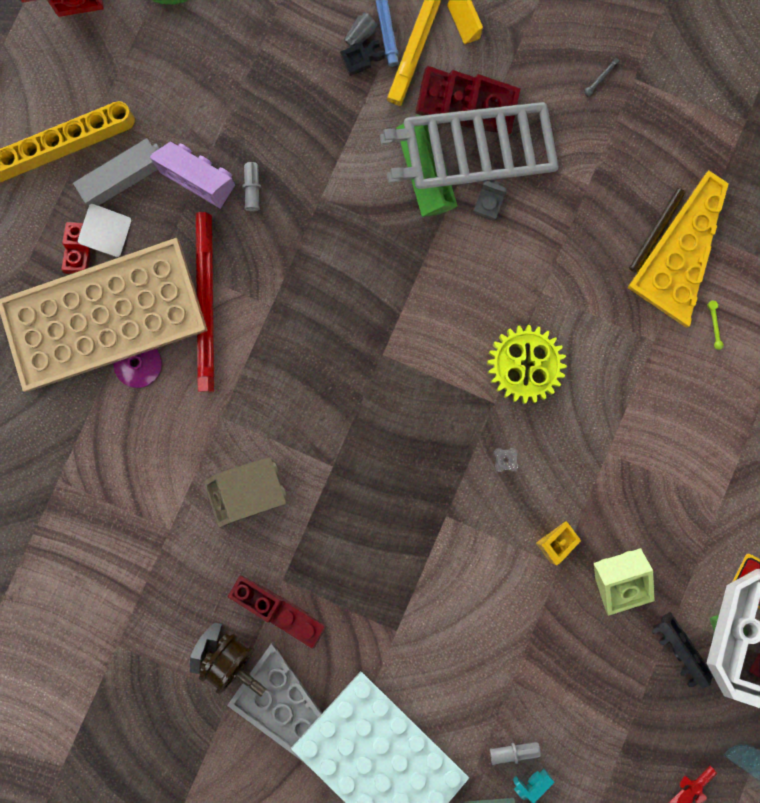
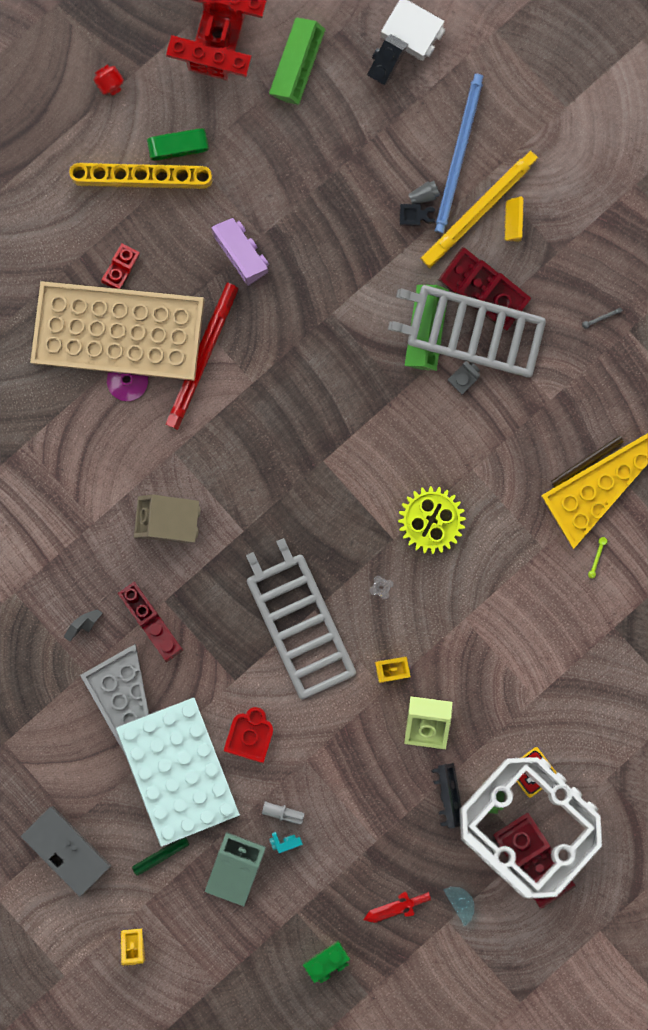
camera: 25 degrees right, 0 degrees up
(79, 94) = (177, 144): none -> green beam
(104, 230) = (149, 263): white sticker -> none
(117, 174) = (180, 223): light grey brick -> none
(228, 665) = (96, 643): dark brown wheel -> none
(251, 186) = (280, 280): light grey axle -> none
(422, 563) = (277, 637): none -> light grey bar
(440, 685) = (249, 735): none -> red plate

